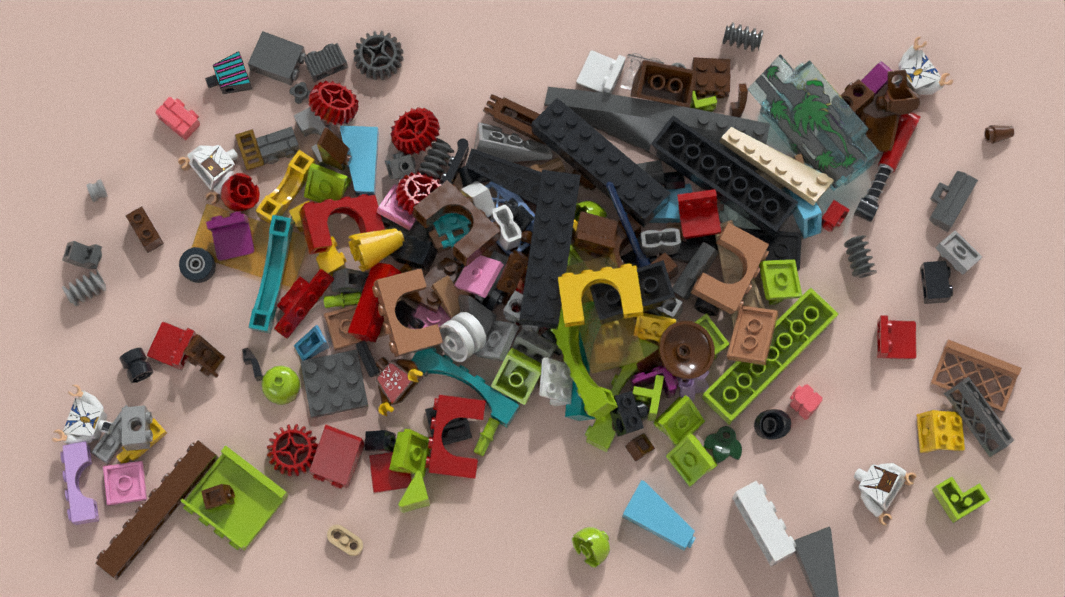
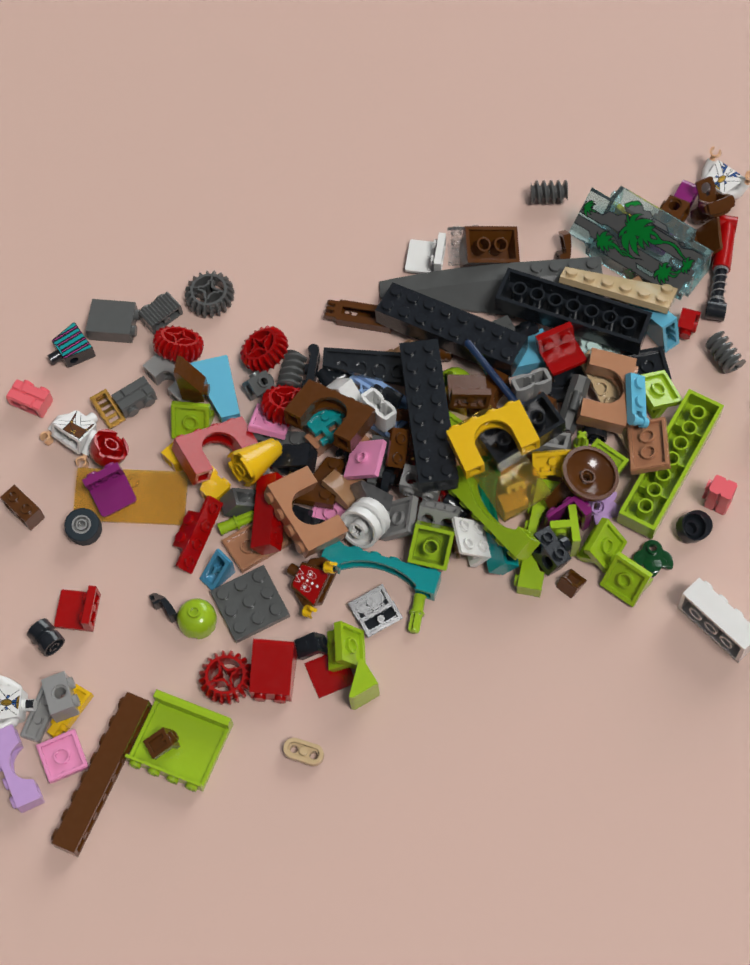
camera: 10 degrees left, 10 degrees down
(204, 355) = (112, 608): reddish brown bracket -> none
(277, 252) = (161, 515): teal arch -> none
(291, 184) = (147, 449): yellow arch -> none
(295, 92) = (137, 346): dark grey plate -> none
(367, 358) = (277, 571): black axle -> none
(441, 460) = (379, 646): red arch -> none
(509, 147) = (359, 340): light grey wedge -> none
(592, 544) = (555, 688): lime cylinder -> none
(657, 517) = (611, 644): medium azure slope -> none
(690, 312) = (581, 439): none -> lime axle
(705, 104) = (535, 255): lime bracket -> none
(712, 77) = (532, 234): reddish brown plate -> none
(754, 288) = (636, 400): none -> medium azure plate

